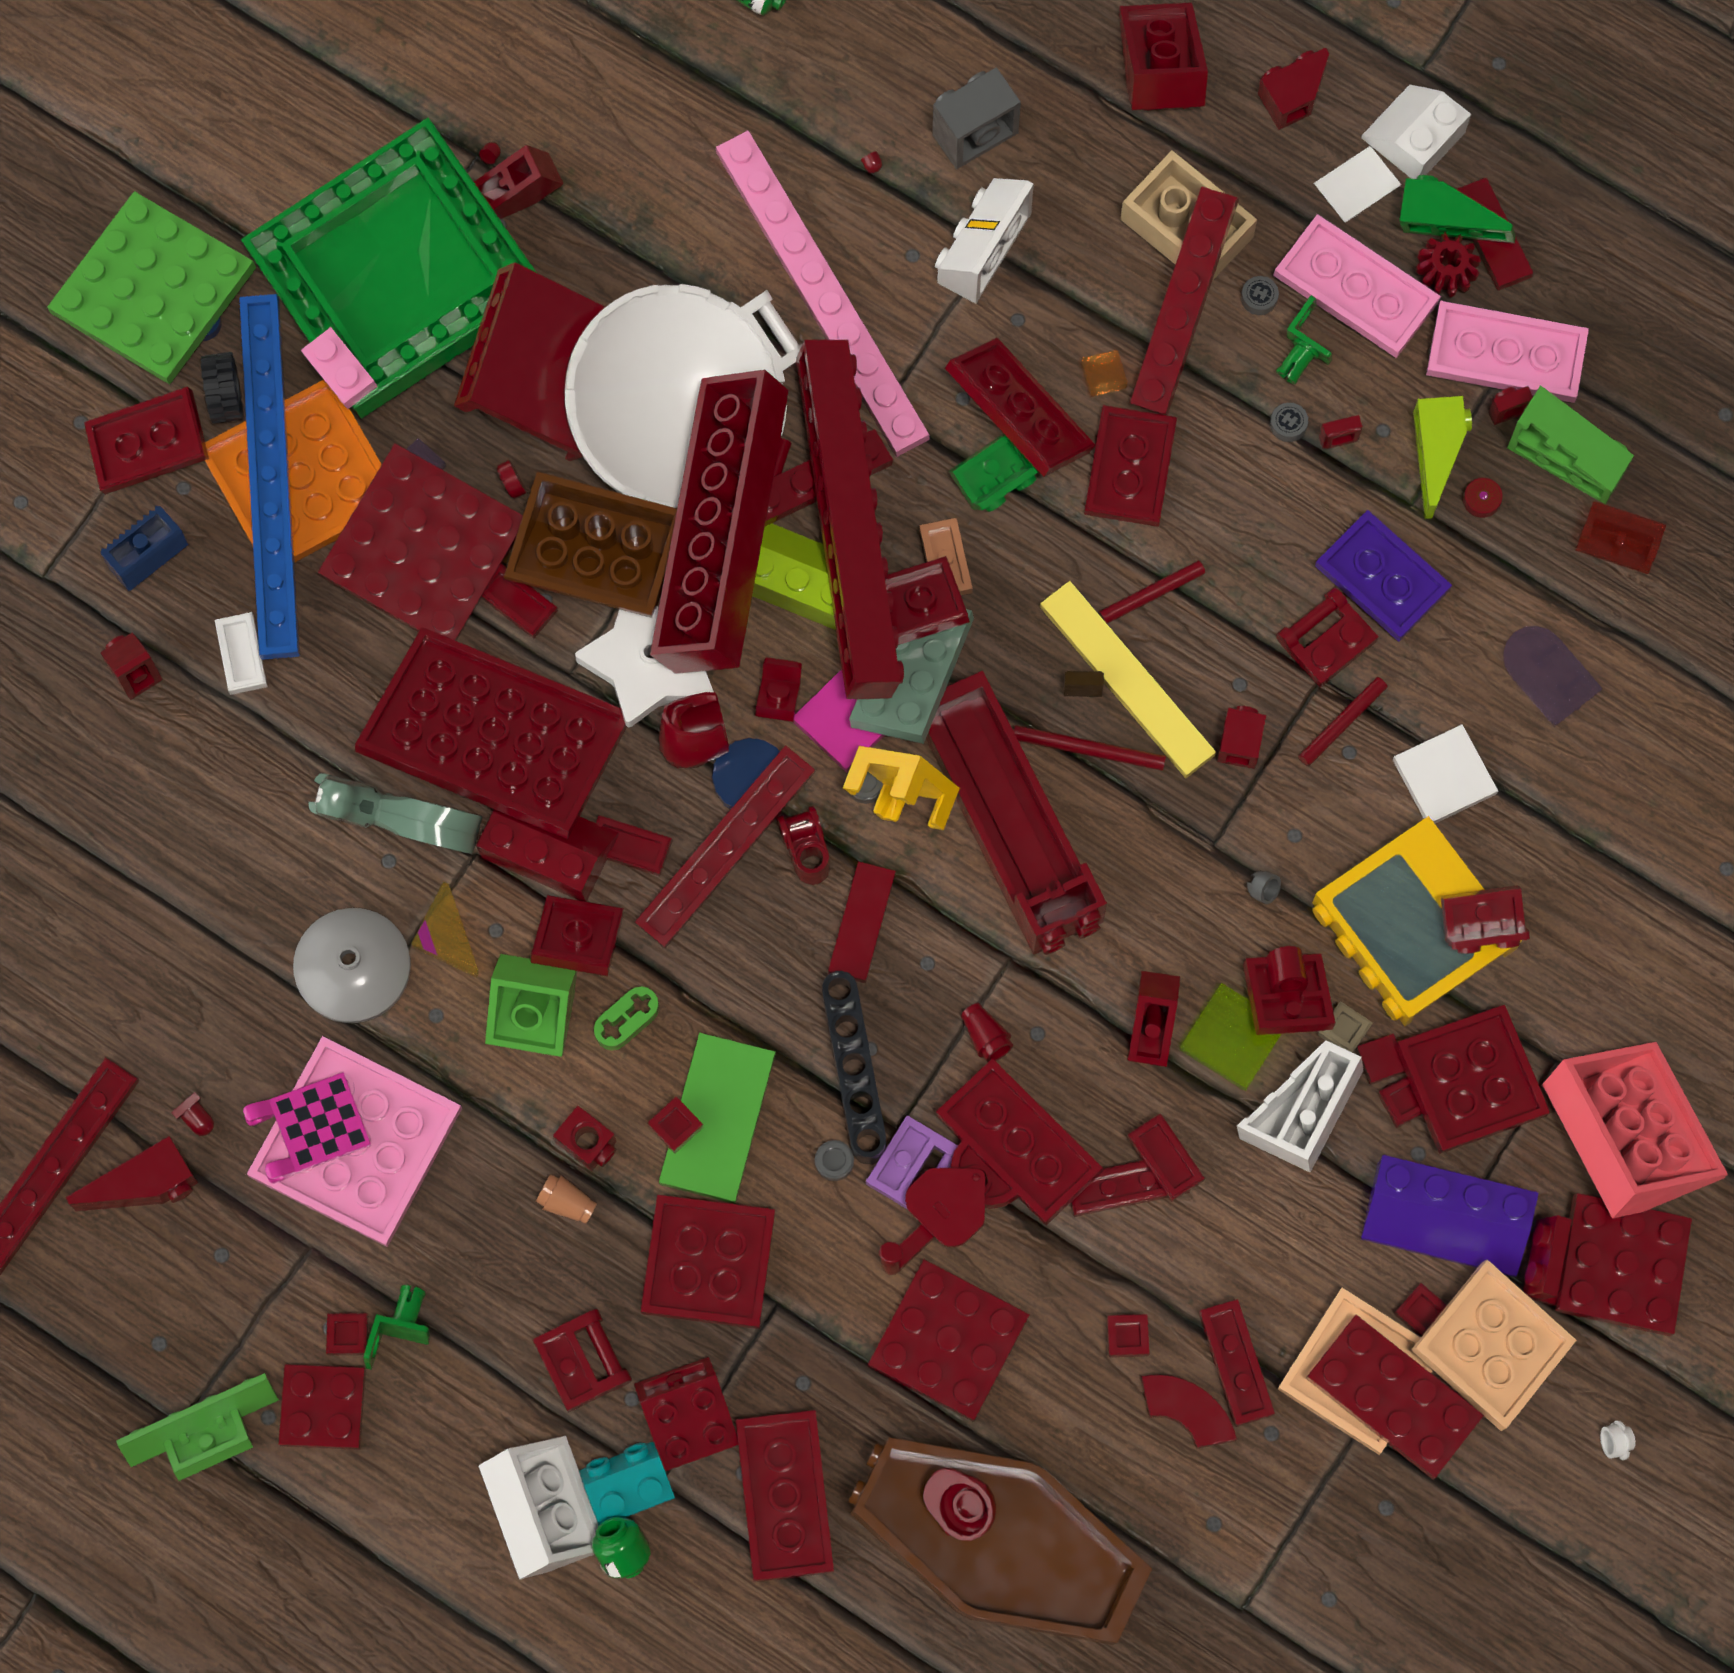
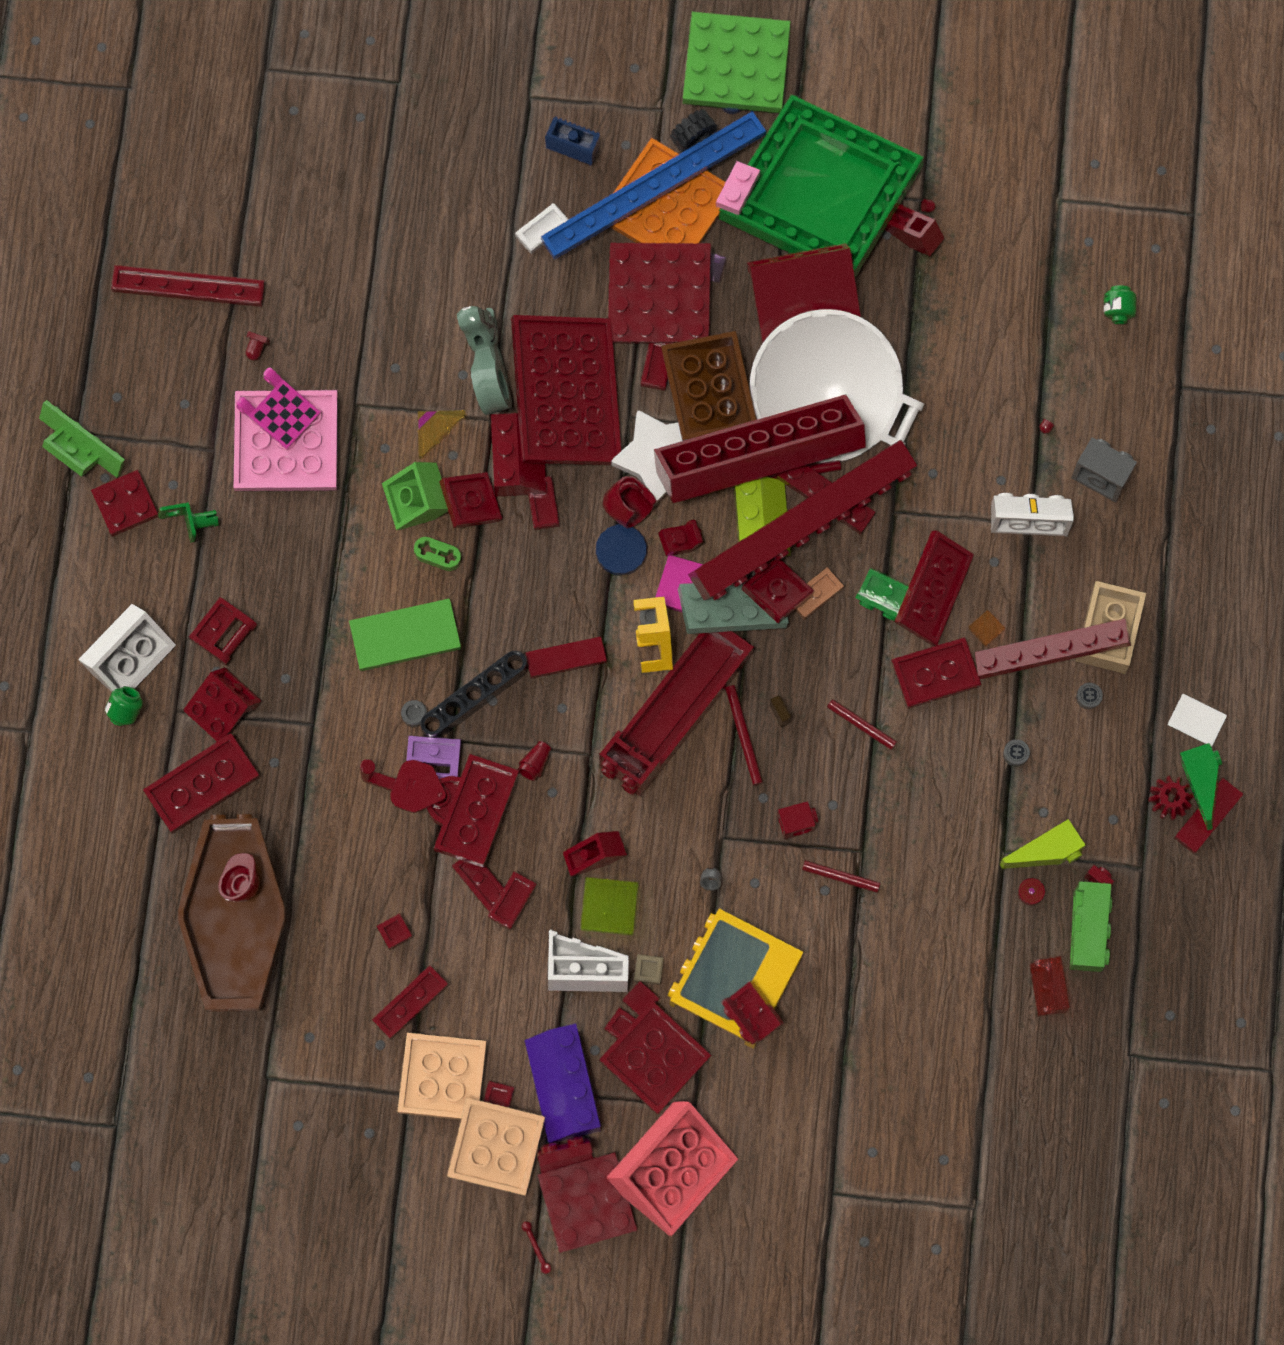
camera: 60 degrees right, 0 degrees up
(131, 665) = (499, 170): dark red slope -> none
(145, 1179) = (207, 340): dark red slope -> none
(146, 440) = (640, 108): dark red tile -> none
(347, 1334) = (173, 493): dark red tile -> none
(368, 984) = (389, 401): light grey dish -> none
(511, 479) = (728, 321): dark red tile -> none
(565, 1199) = (311, 573): nougat cone -> none
(577, 1124) = (349, 556): dark red brick -> none
(626, 1482) = (164, 691): teal bracket -> none
(675, 1125) = (385, 611): dark red plate -> none
(708, 1261) = (316, 672): dark red plate -> none
(725, 846) = (568, 555): dark red plate -> none
(803, 839) = (597, 597): dark red piece -> none
(821, 290) = (946, 439): bright pink plate -> none
(948, 1340) = (340, 831): dark red plate -> none
(1128, 679) = (798, 736): light yellow tile -> none
(1163, 56) = (1212, 561): dark red slope -> none
(1190, 1407) = (370, 988): dark red tile -> none
(1288, 992) = (650, 923): dark red plate -> none
(1292, 90) = (1236, 651): dark red slope -> none
(1304, 349) = (1066, 738): green bracket -> none
(1336, 646) = (886, 849): dark red plate -> none
(1340, 432) = (1024, 785): dark red tile -> none
(1357, 285) = (1126, 750): bright pink plate -> none
(1383, 575) = (946, 855): dark purple plate -> none
(1394, 1397) = (434, 1102): dark red plate -> none
(1418, 129) = (1250, 738): white slope -> none
(1445, 775) = (839, 953): white tile -> none
(1506, 350) = (1134, 861): bright pink plate -> none
(1548, 672) = (939, 985): clear purple window -> none
(1617, 1440) = (477, 1249): white plate -> none
(1682, 1364) = (545, 1267): none -> dark red hinge

